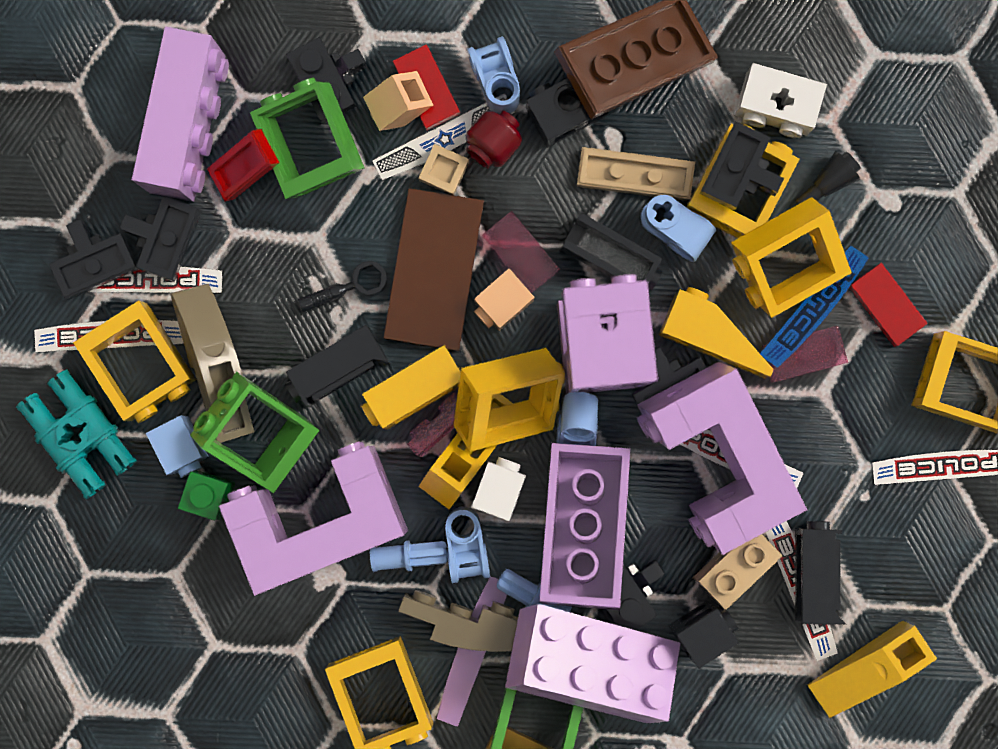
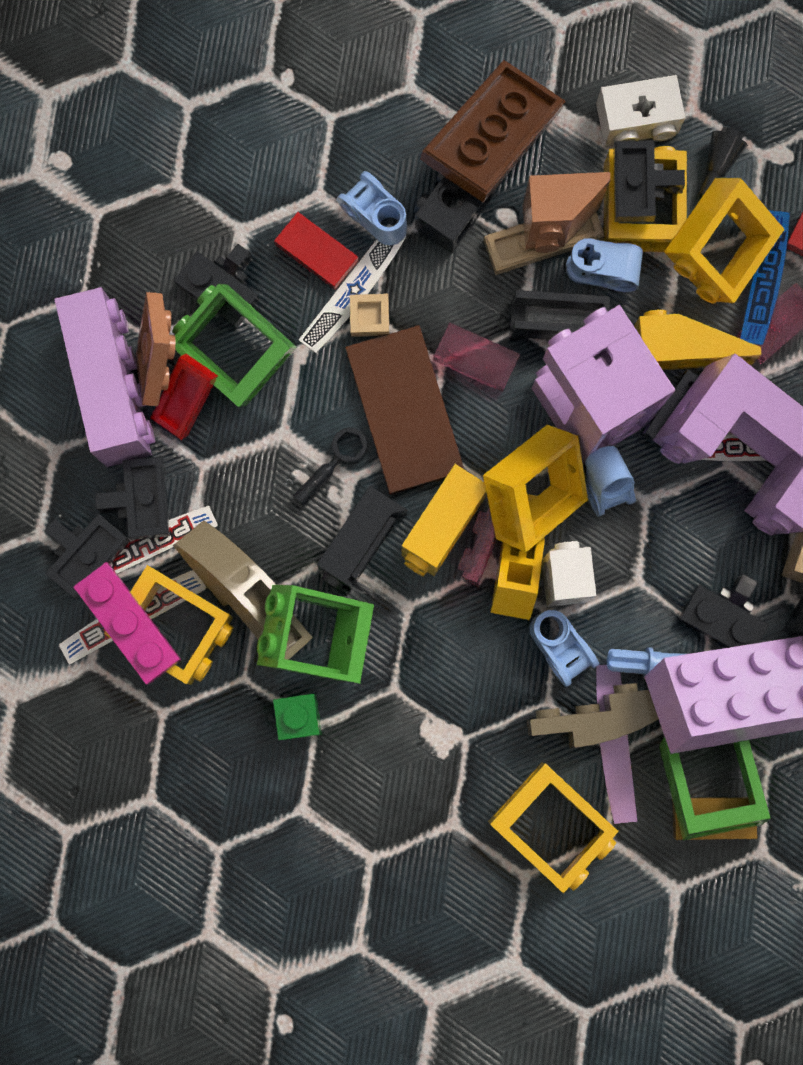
camera: 25 degrees left, 5 degrees down
(56, 434) = (126, 729): teal pin -> none
(96, 344) = (127, 623): none -> dark pink plate
(176, 447) = (247, 685): light blue brick -> none
(234, 112) = (154, 349): none -> nougat plate
(275, 559) = (466, 665): lavender piece -> none
(398, 100) = (297, 272): light nougat brick -> none
(408, 555) = (513, 681): light blue axle -> none
(493, 138) = (401, 265): dark red head -> none
(502, 301) = (482, 406): light nougat brick -> none
(585, 526) = (666, 571): lavender brick -> none
(657, 158) = (559, 207): none -> nougat slope

